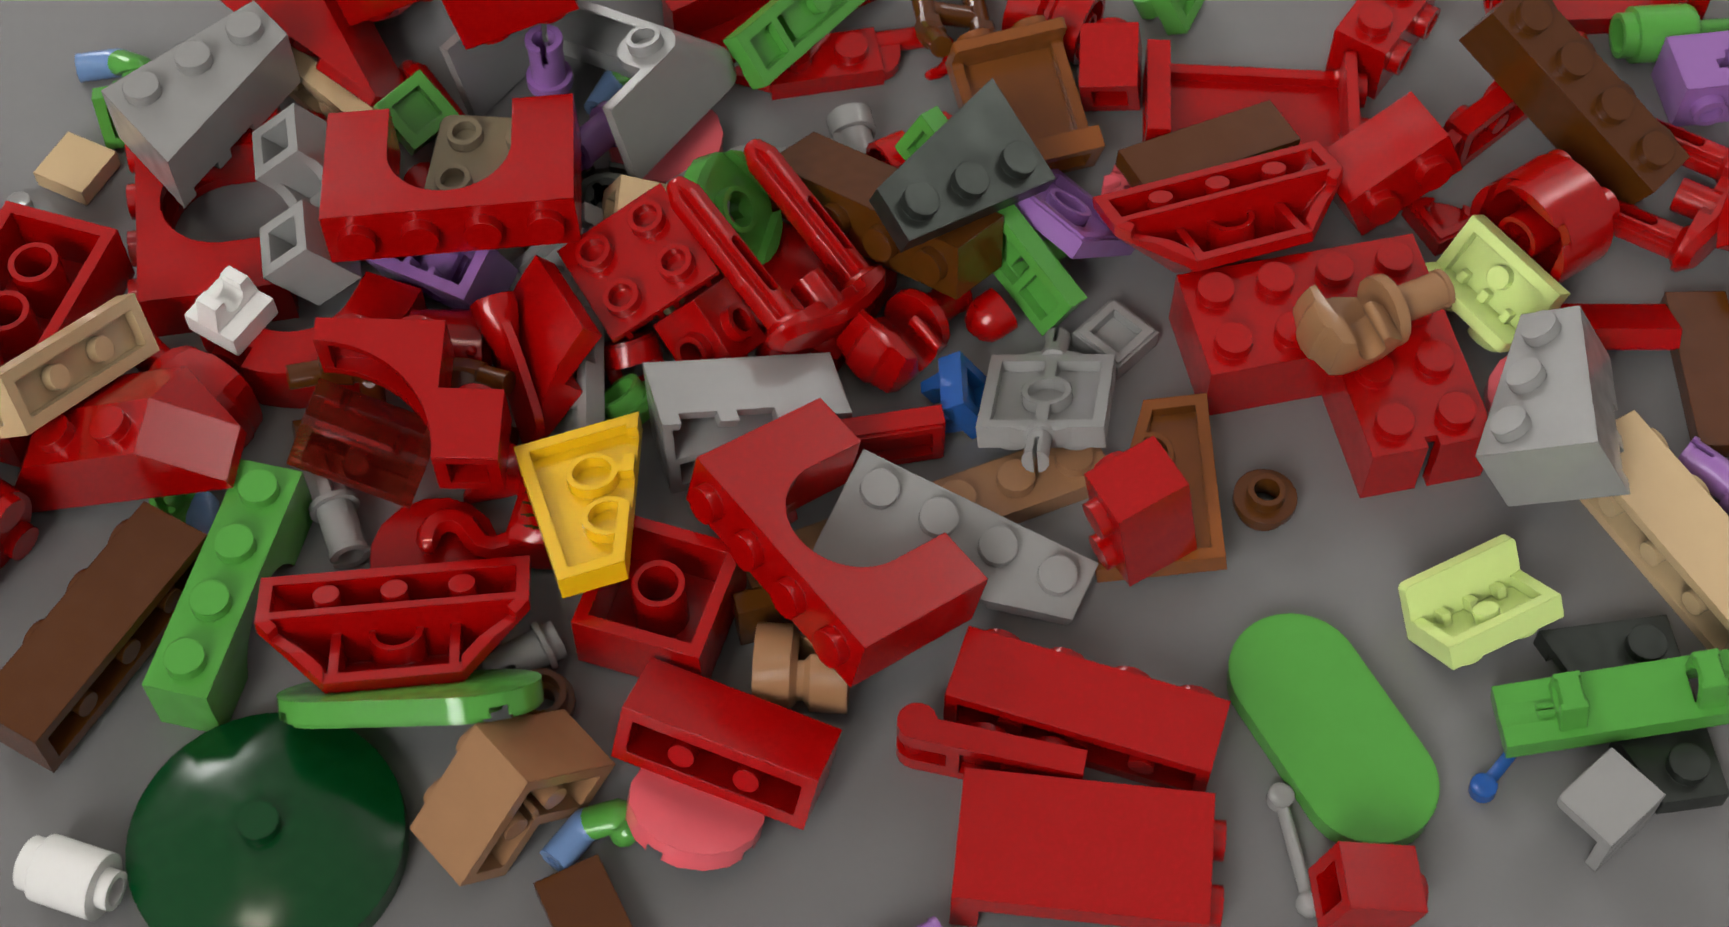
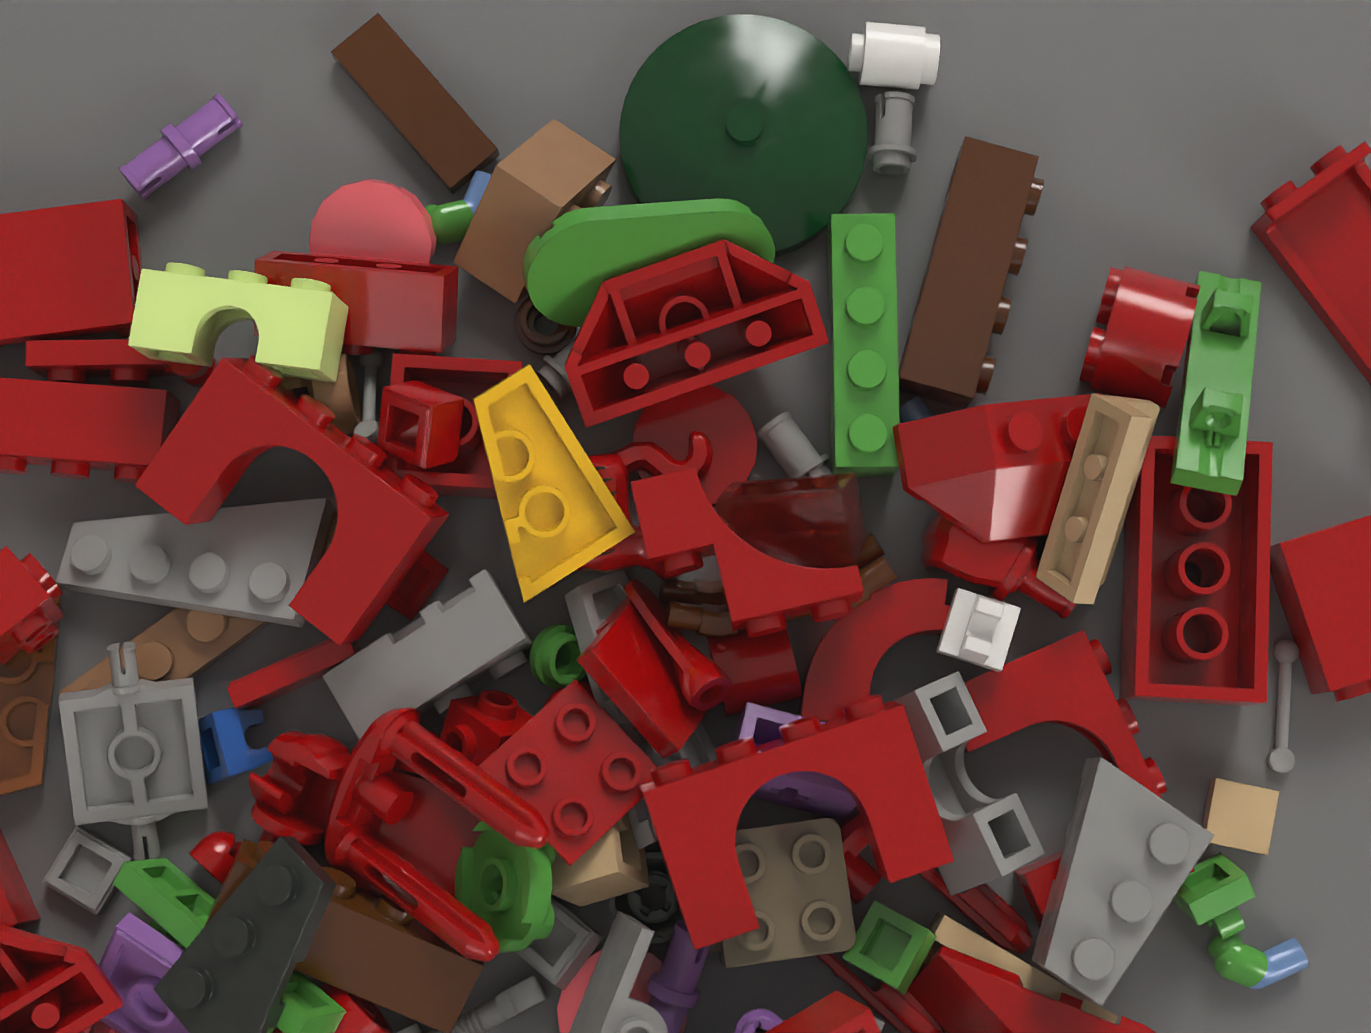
camera: 165 degrees right, 25 degrees up
(110, 801) = (893, 134): none -> light grey pin
(688, 574) = (420, 423): none -> red slope
(747, 602) = (369, 427): none -> light grey hinge
(892, 741) = (185, 312): none -> yellowish green arch

